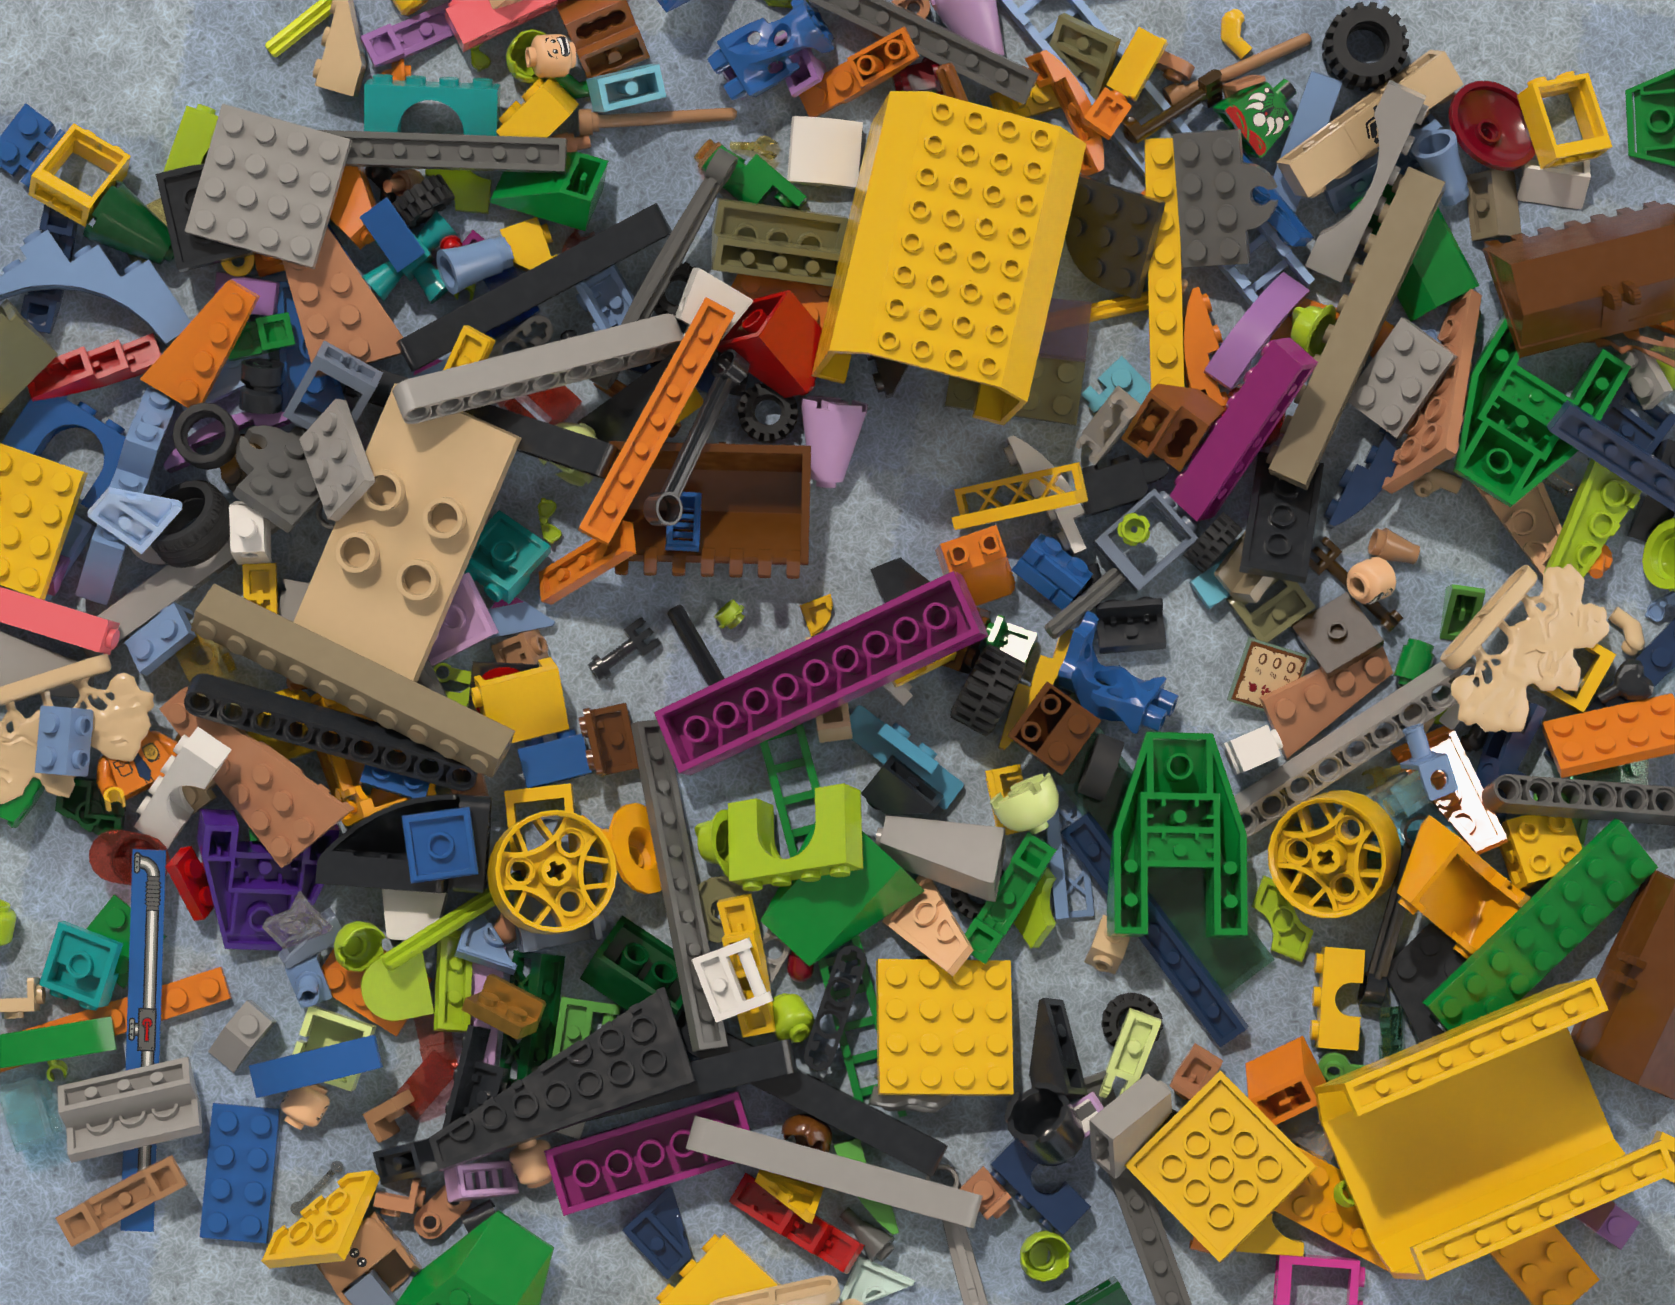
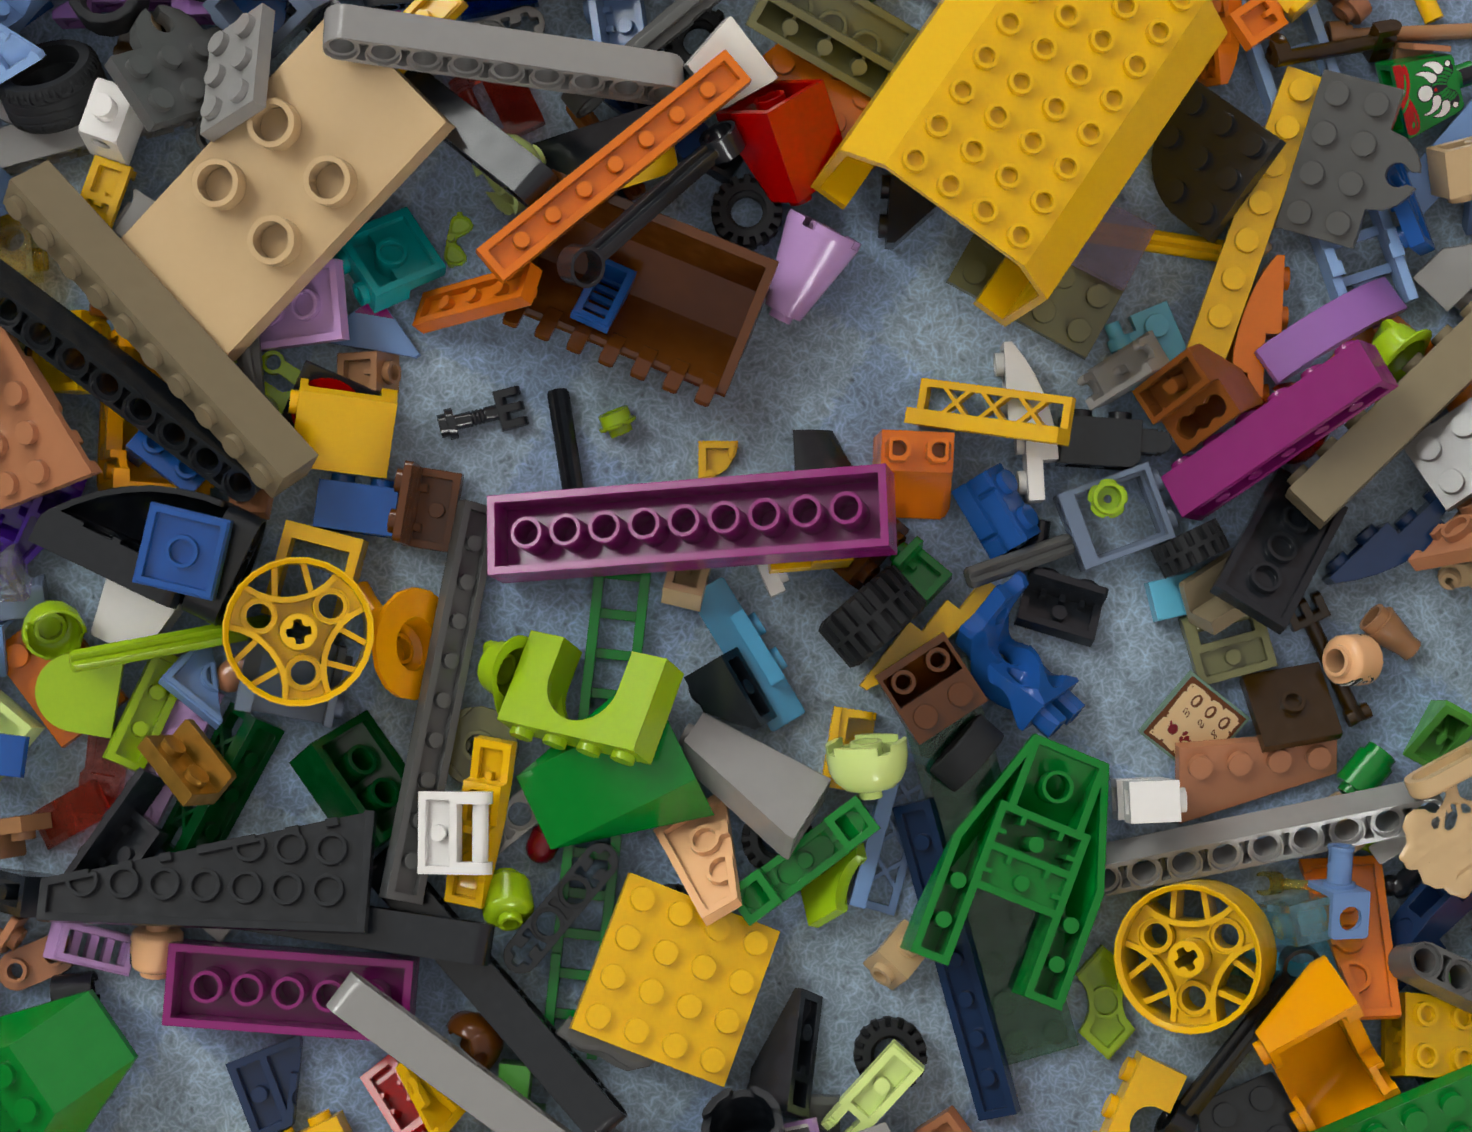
camera: 25 degrees right, 0 degrees up
(576, 1020) = (268, 808): bright green plate -> none

